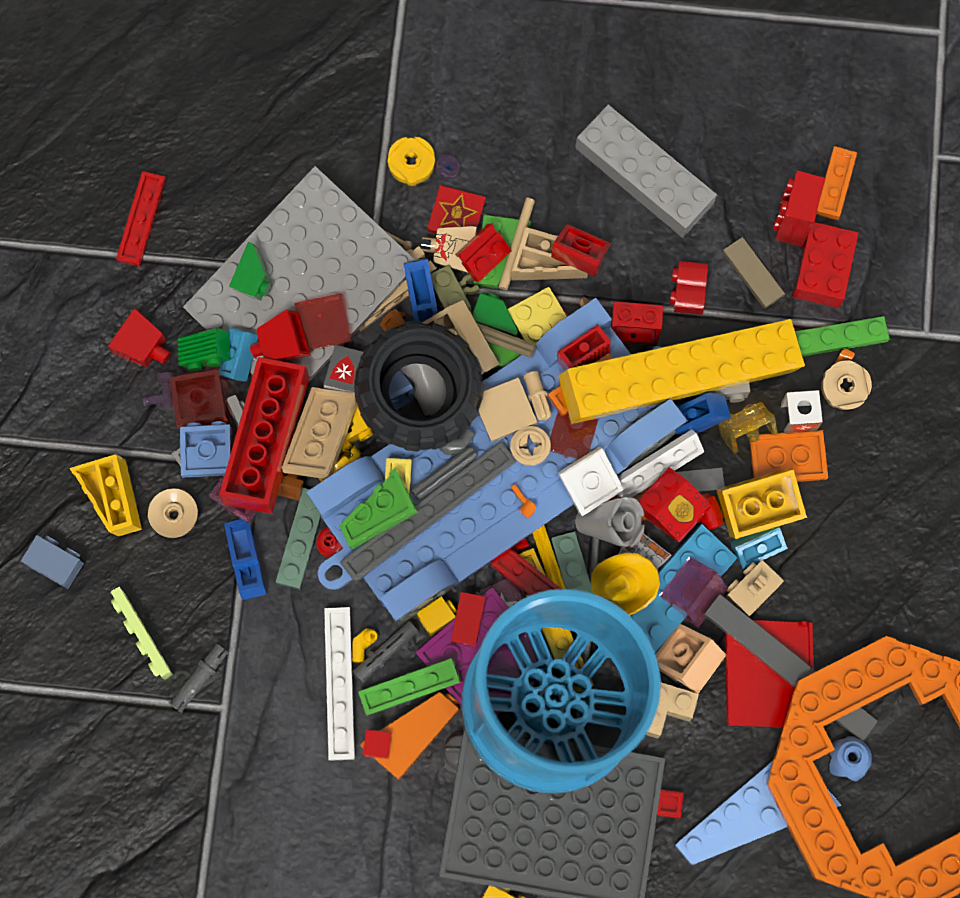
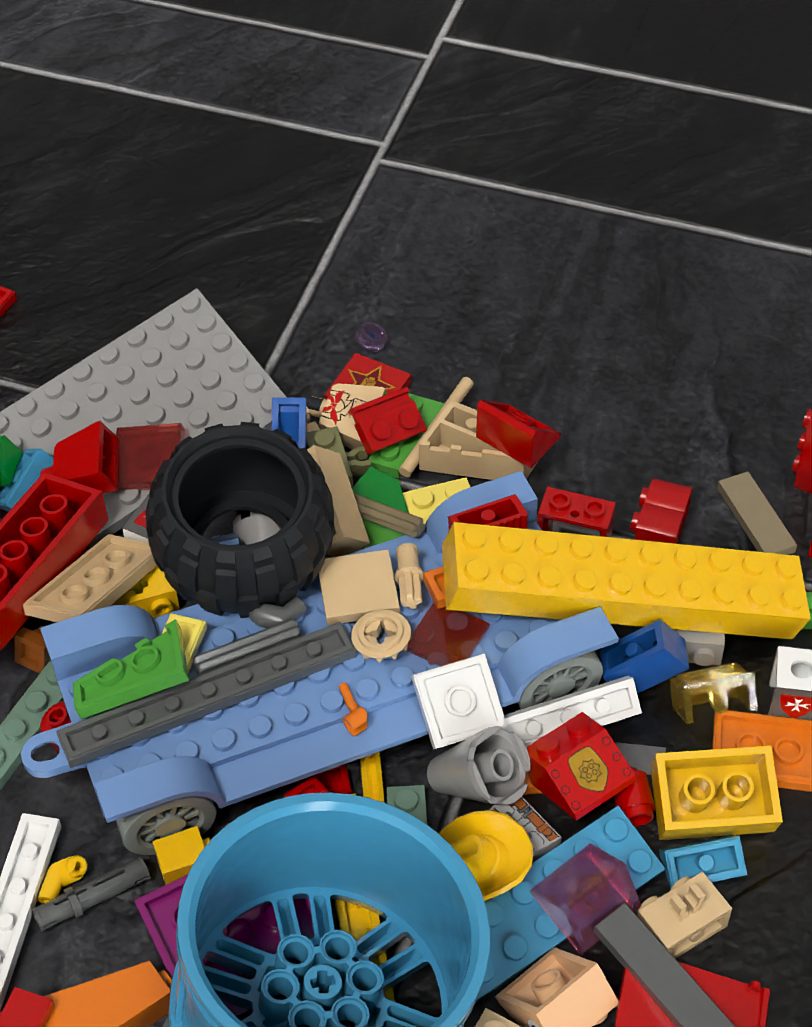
camera: 15 degrees right, 25 degrees down
(251, 274) = (72, 388): green slope -> none
(410, 686) = (103, 947): bright green plate -> none
(411, 173) = (329, 336): yellow plate -> none
(645, 171) = (631, 379): light grey brick -> none

